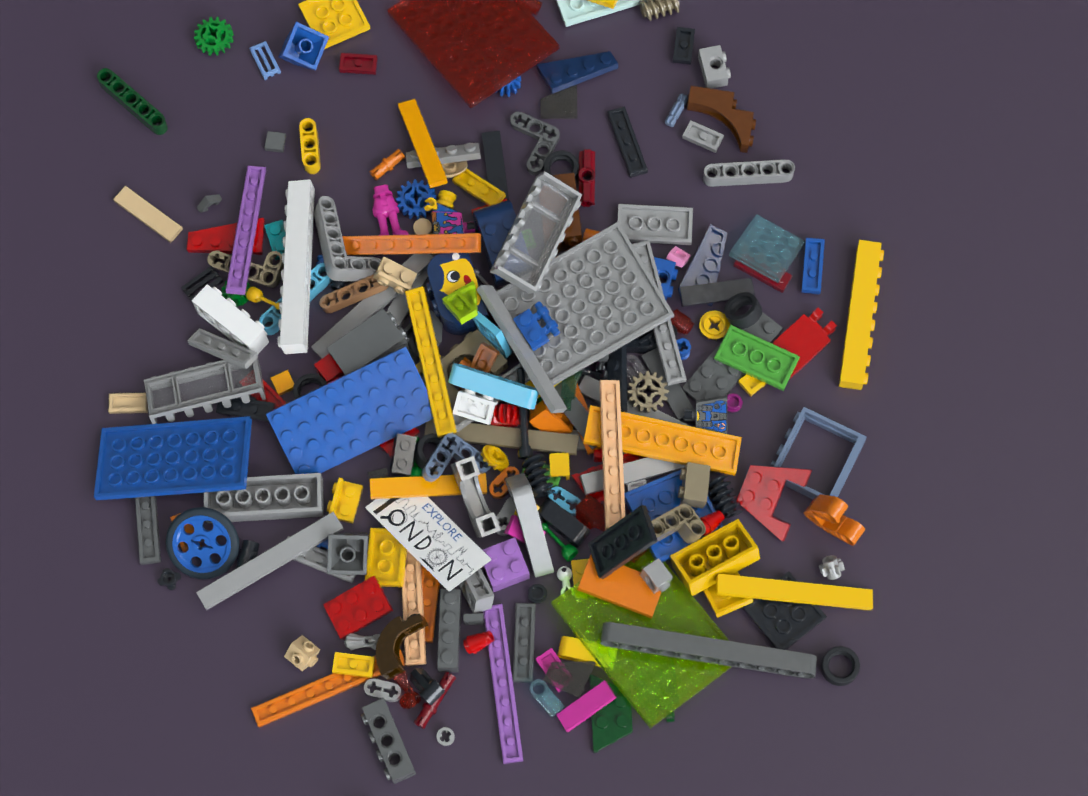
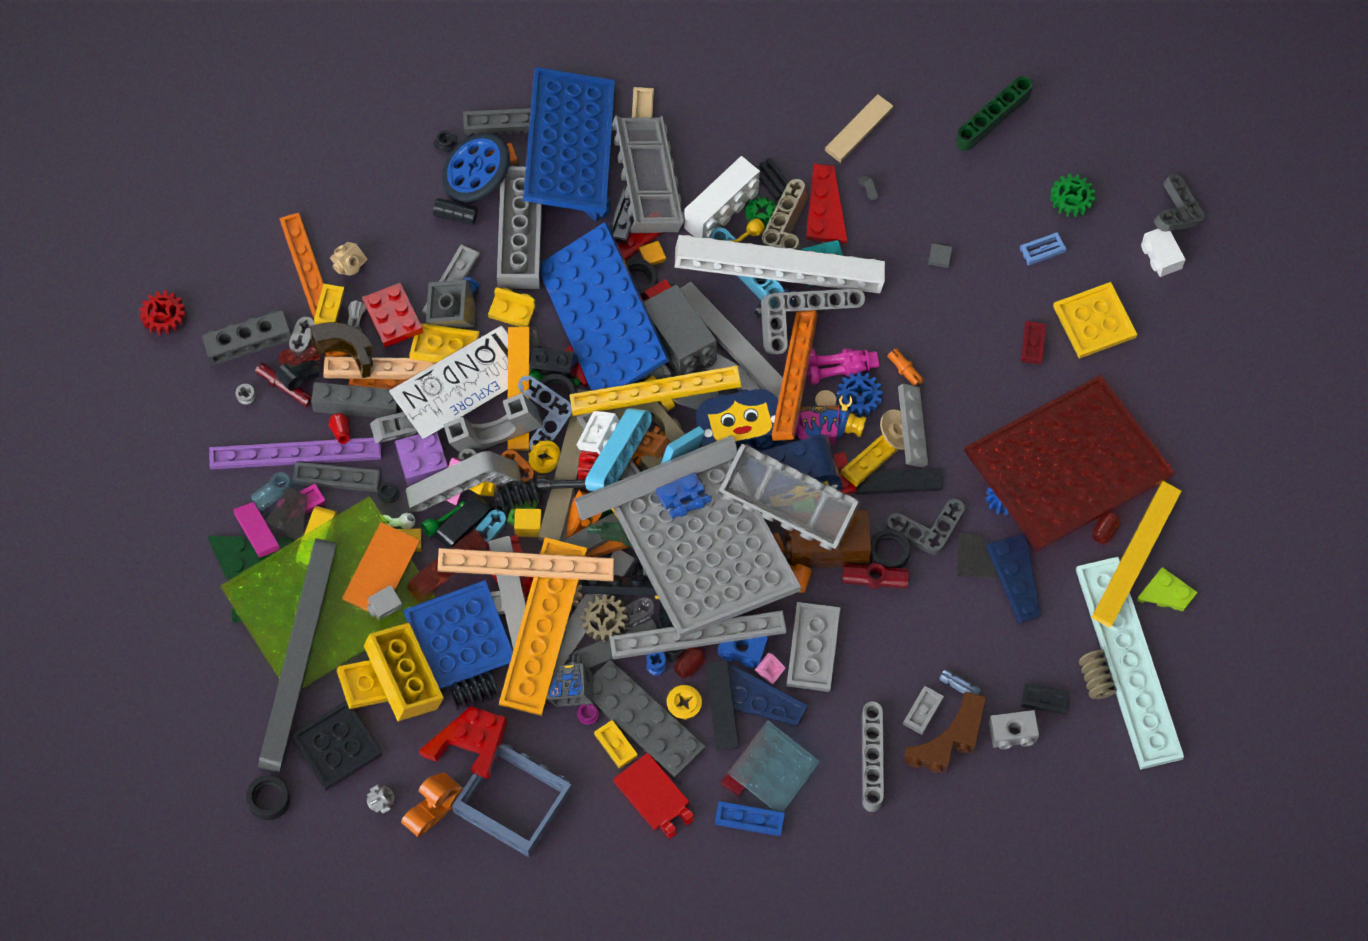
camera: 90 degrees right, 5 degrees down
(222, 348) = (690, 191): light grey tile -> none
(246, 230) = (829, 217): medium lavender tile -> none
(269, 561) = (449, 229): light grey tile -> none
(303, 46) = (1051, 283): blue slope -> none
(306, 139) = (939, 282): yellow beam -> none
(355, 296) = (749, 325): medium nougat beam -> none
(394, 275) = (759, 360): tan bracket -> none
(422, 143) = (924, 400): light orange tile -> none
(463, 303) = (713, 418): lime wing -> none
(473, 619) = (365, 427): dark grey tile -> none
(622, 542) = (417, 559): black tile -> none
(627, 142) = (922, 627): black tile -> none
(679, 519) = (431, 611): dark tan beam -> none
(694, 484) = (487, 655): dark tan brick -> none
(712, 521) = (443, 669): red cone -> none
(738, 301) = (688, 738): black tyre -> none
(757, 357) = (636, 741): bright green tile -> none
(794, 592) = (354, 753): yellow tile -> none
(860, 315) = (683, 865): yellow brick -> none

